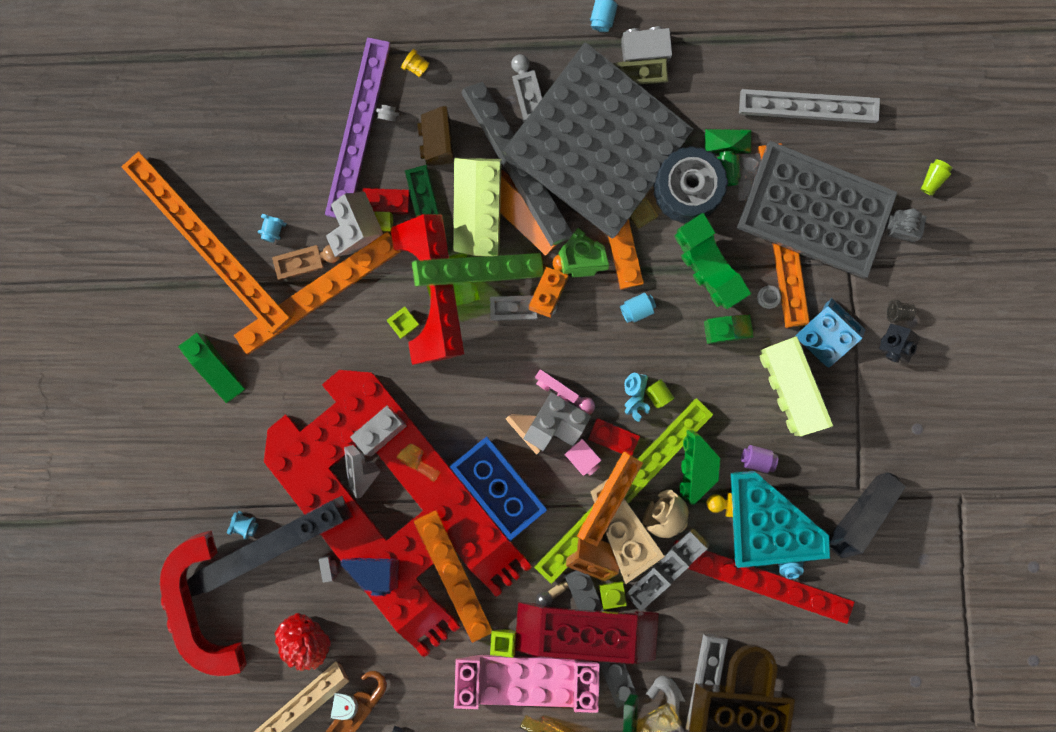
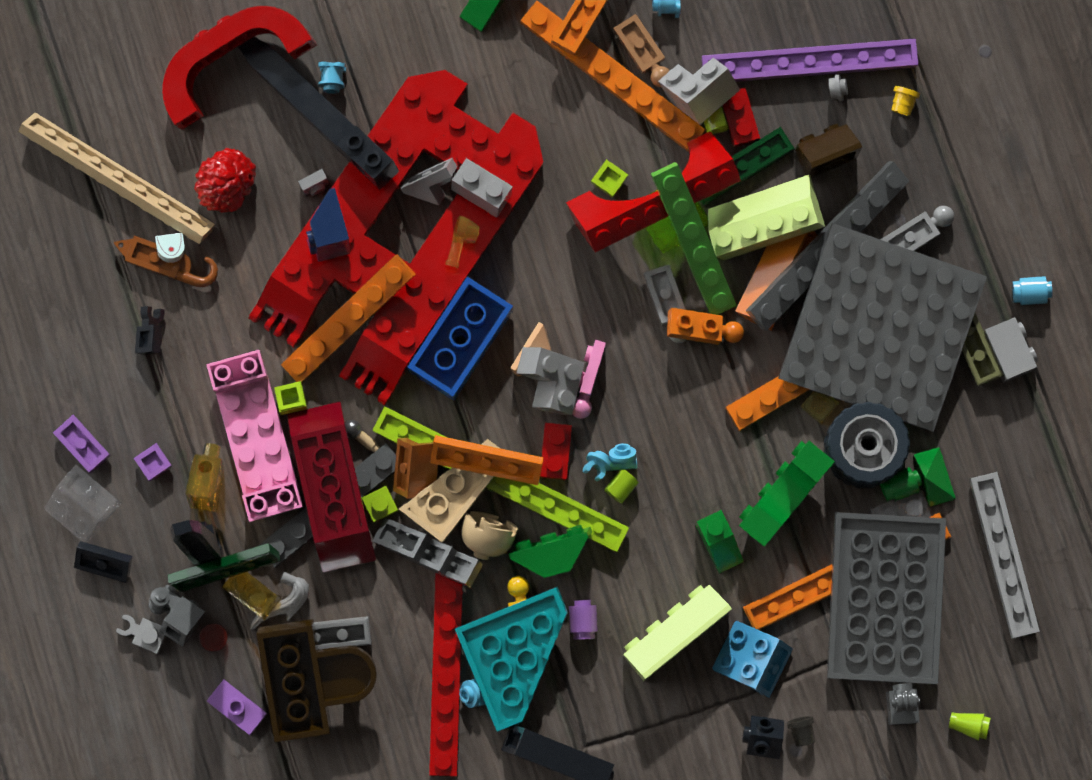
camera: 70 degrees right, 5 degrees down
(583, 256) = (748, 352): bright green plate -> none
(583, 458) = (522, 422): bright pink brick -> none
(638, 308) = (710, 432): medium azure brick -> none
(769, 297) = (770, 576): light grey plate -> none

